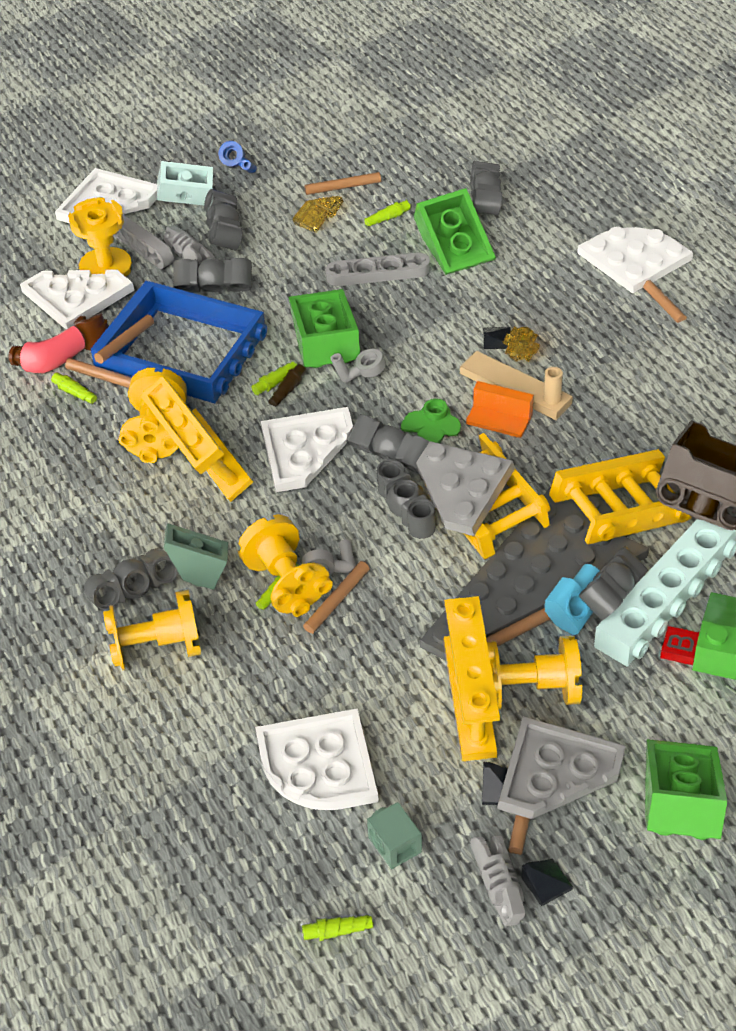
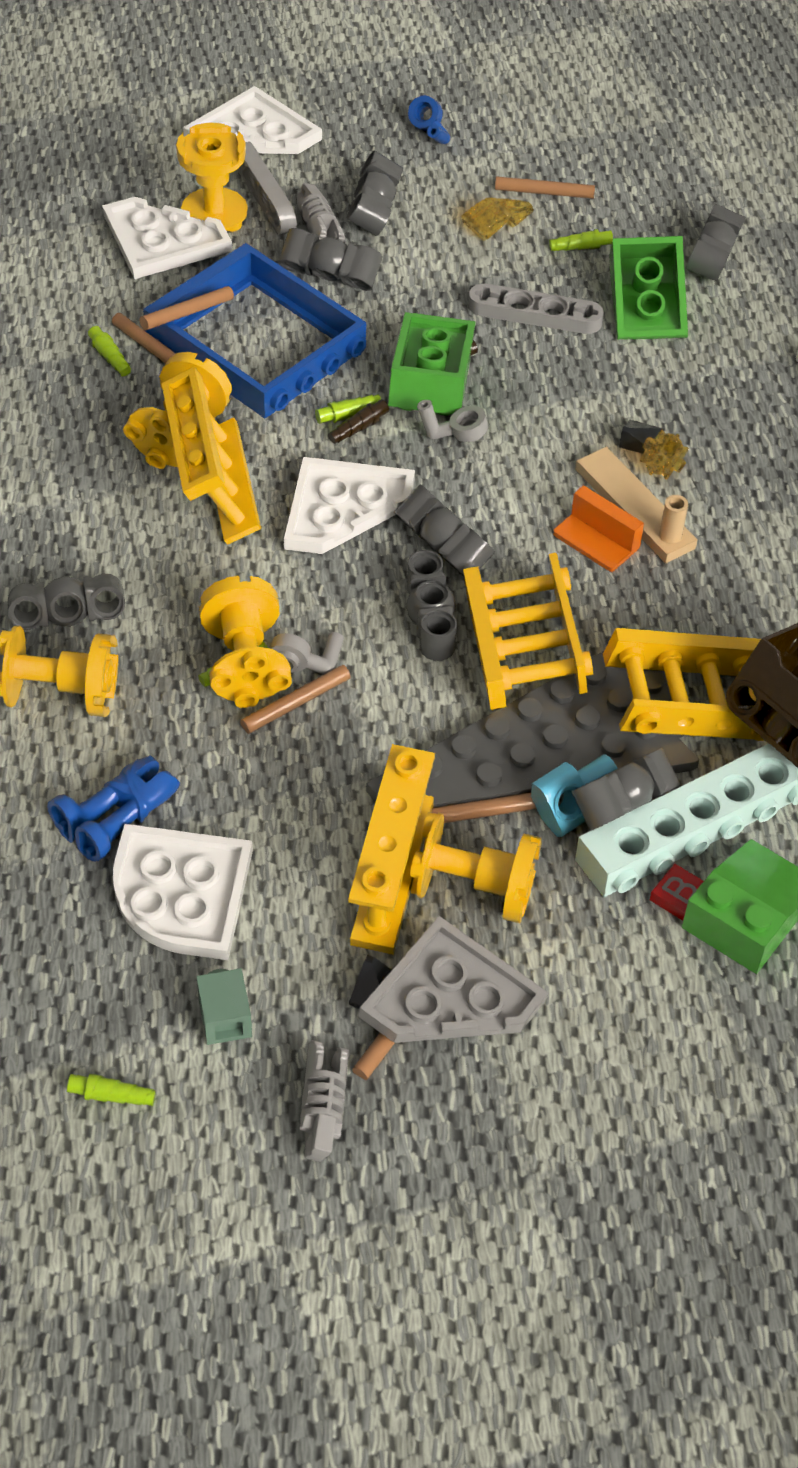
camera: 15 degrees right, 5 degrees up
(54, 352) = (103, 300): coral piece -> none
(184, 183) = (346, 133): light aqua brick -> none
(196, 555) = (145, 595): sand green slope -> none
(245, 704) = (134, 791): none -> blue piece
(432, 421) = (509, 520): bright green plate -> none
(462, 484) = (498, 609): light grey plate -> none
(545, 880) = (378, 1121): black slope -> none
(684, 790) = (593, 1069): bright green slope -> none

